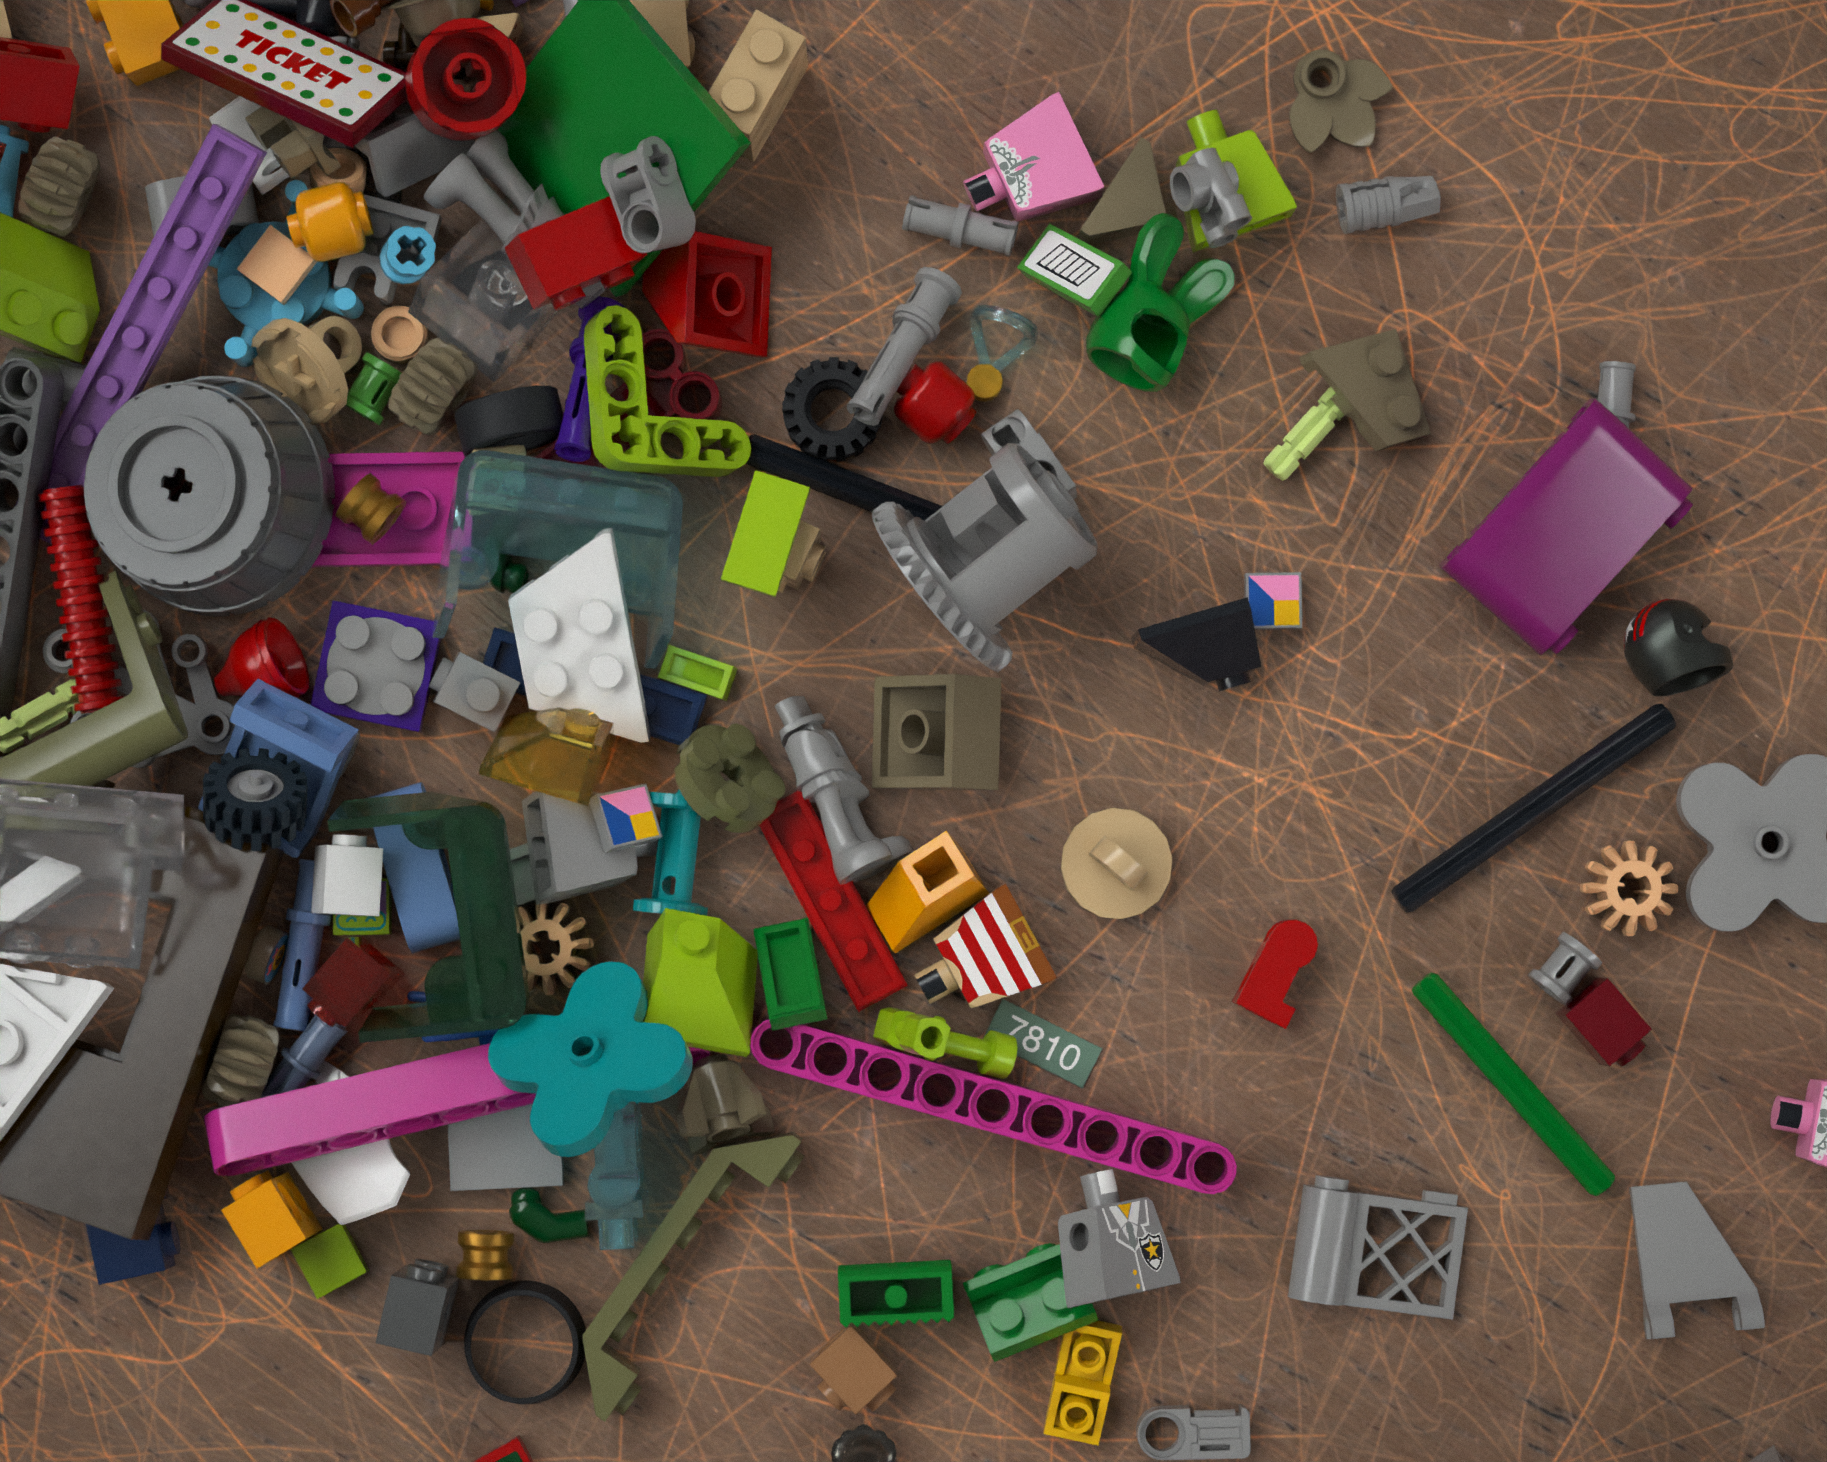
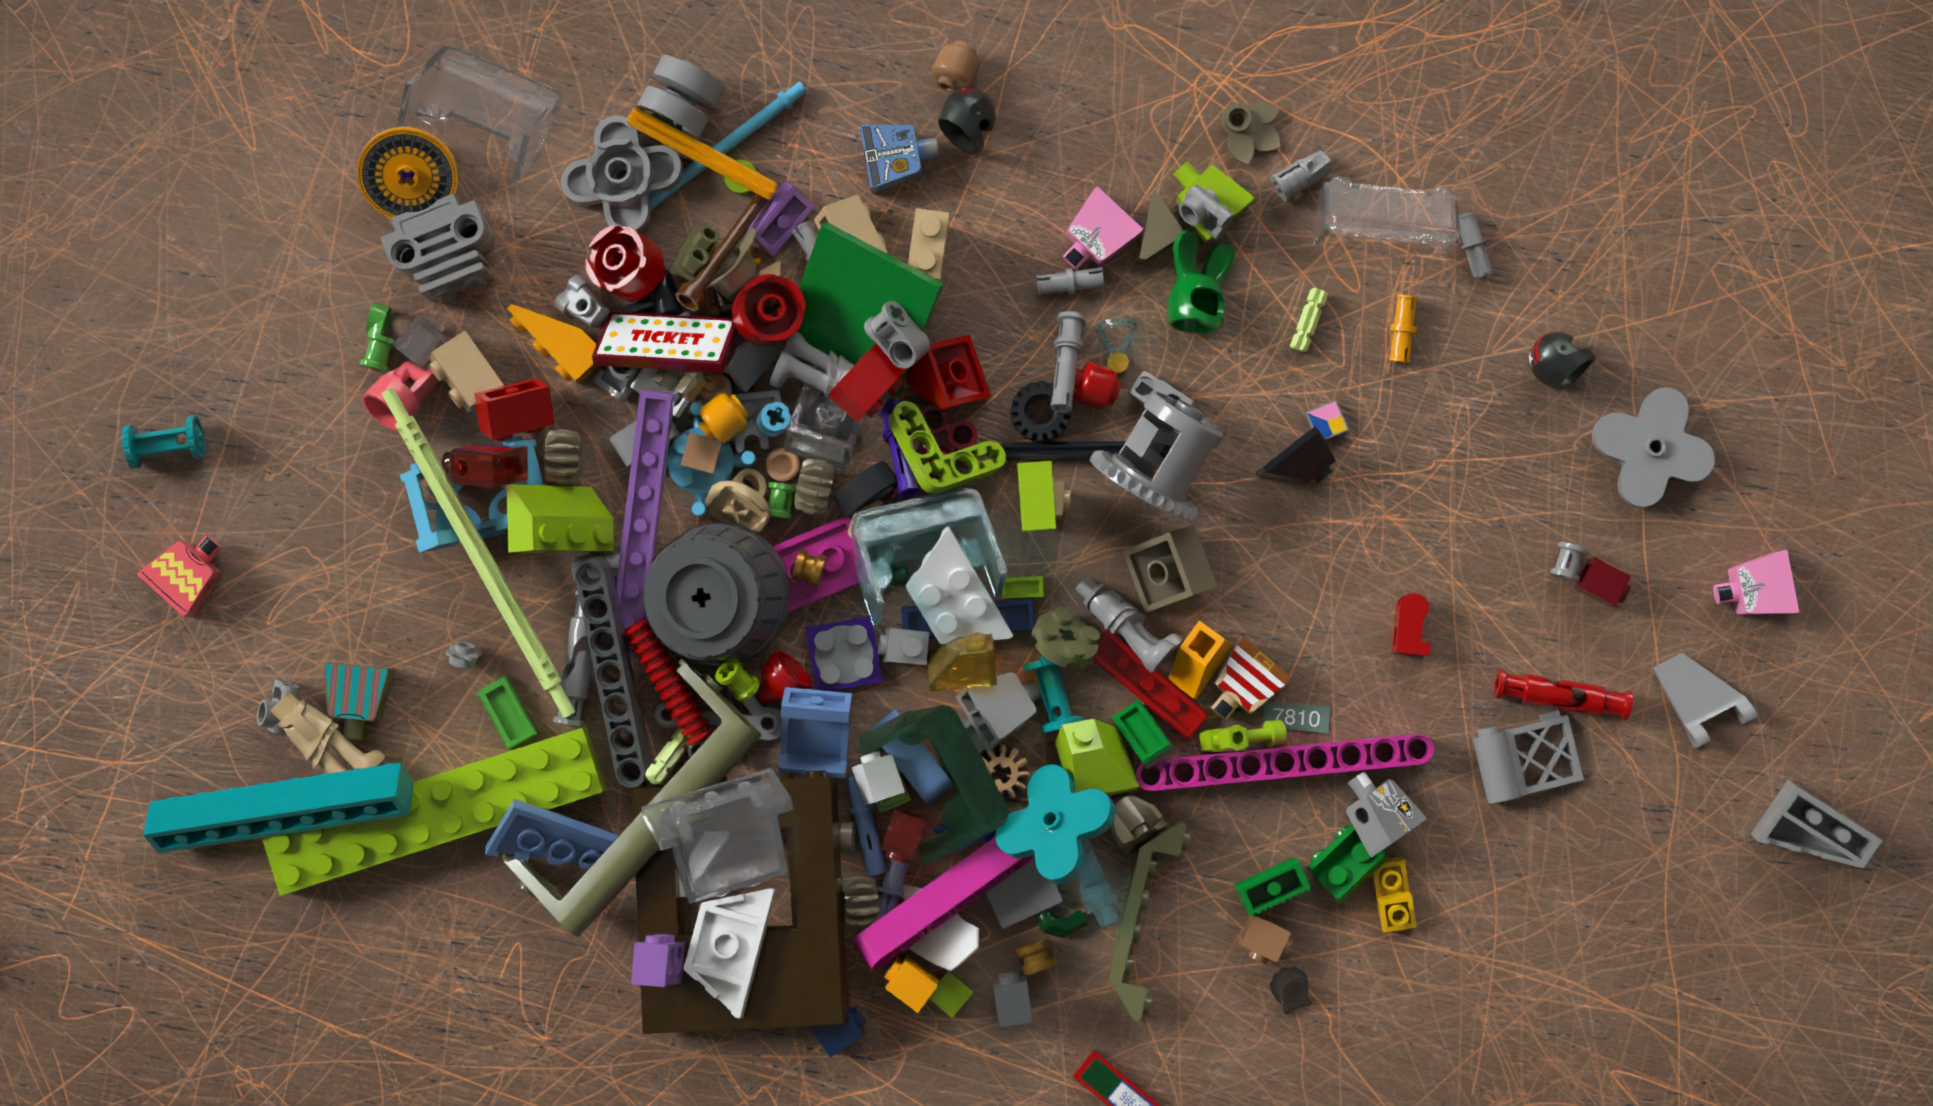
camera: 15 degrees left, 0 degrees up
(188, 638) = (737, 680): none -> lime bush
(193, 101) = (616, 381): none -> light grey plate
(254, 799) = (811, 754): black wheel -> none
(557, 1300) = (1064, 966): black tyre -> none
(625, 818) = (1019, 683): tile -> none
(1074, 270) = (1144, 281): tile -> none
(1116, 863) = (1297, 601): tan tile -> none
(1200, 1434) = (1469, 899): light grey piece -> none
(1373, 388) = (1335, 281): dark tan wing -> none
(1442, 1155) = (1541, 691): none -> red piece
(1450, 503) = (1403, 328): none -> light orange pin
(1496, 313) = (1388, 214): none -> clear windscreen
(1513, 1084) = (1565, 636): green axle -> none
(1533, 808) = (1516, 479): black axle -> none
(1568, 528) = (1475, 317): magenta windscreen -> none
(1630, 867) = (1599, 500): light nougat gear -> none

